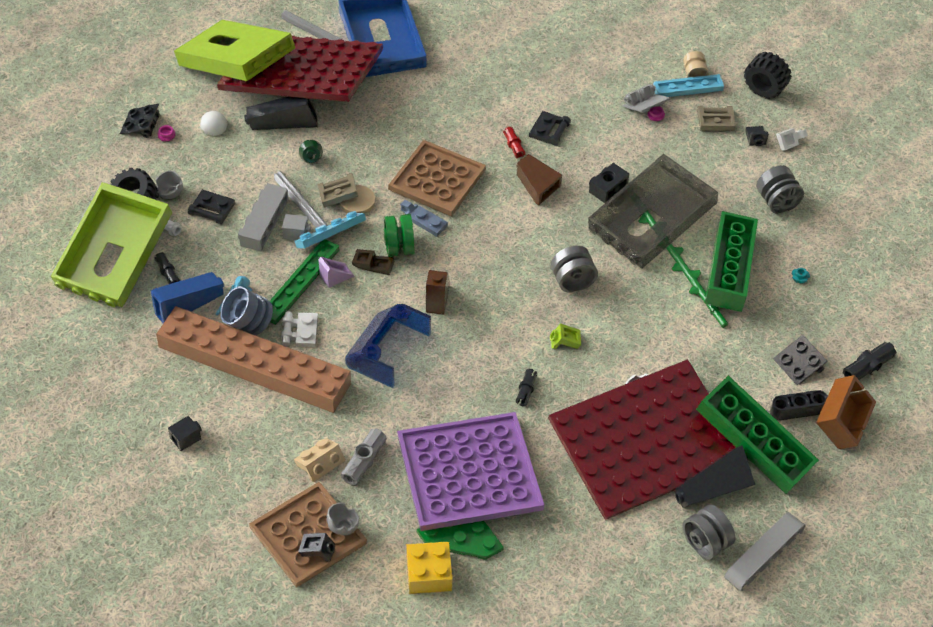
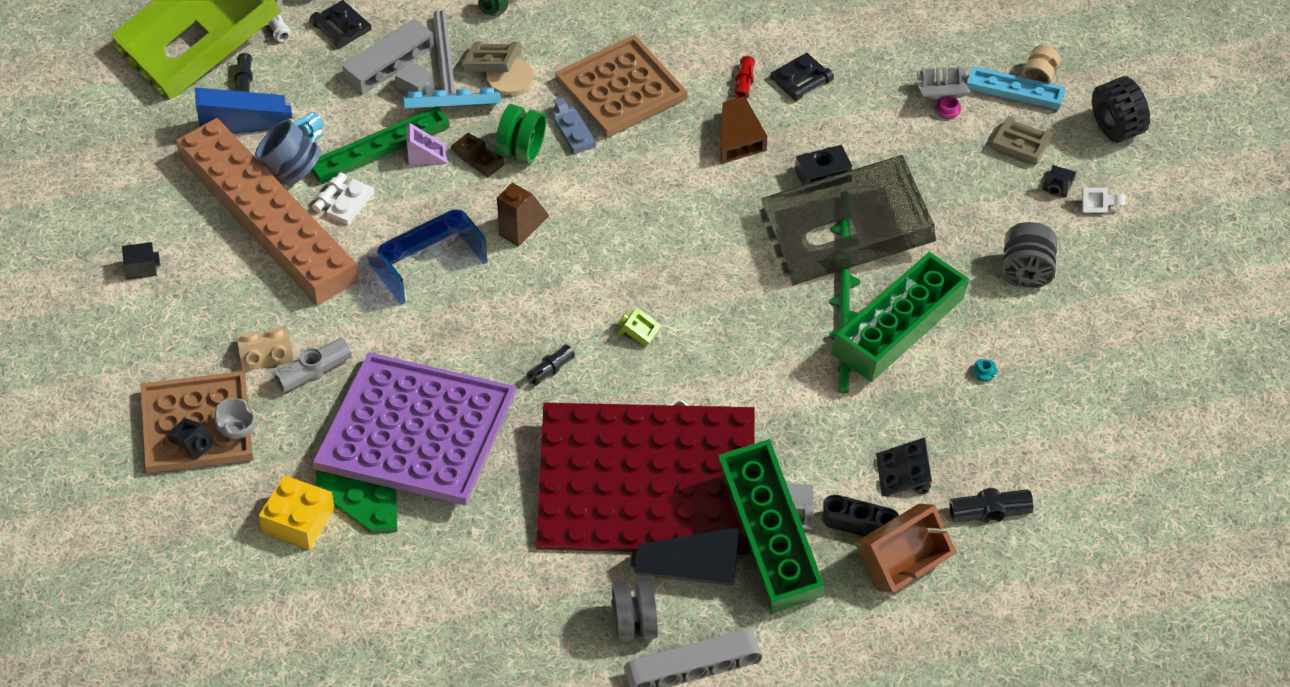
camera: 30 degrees right, 0 degrees up
(574, 269) = (698, 251): flat silver wheel -> none

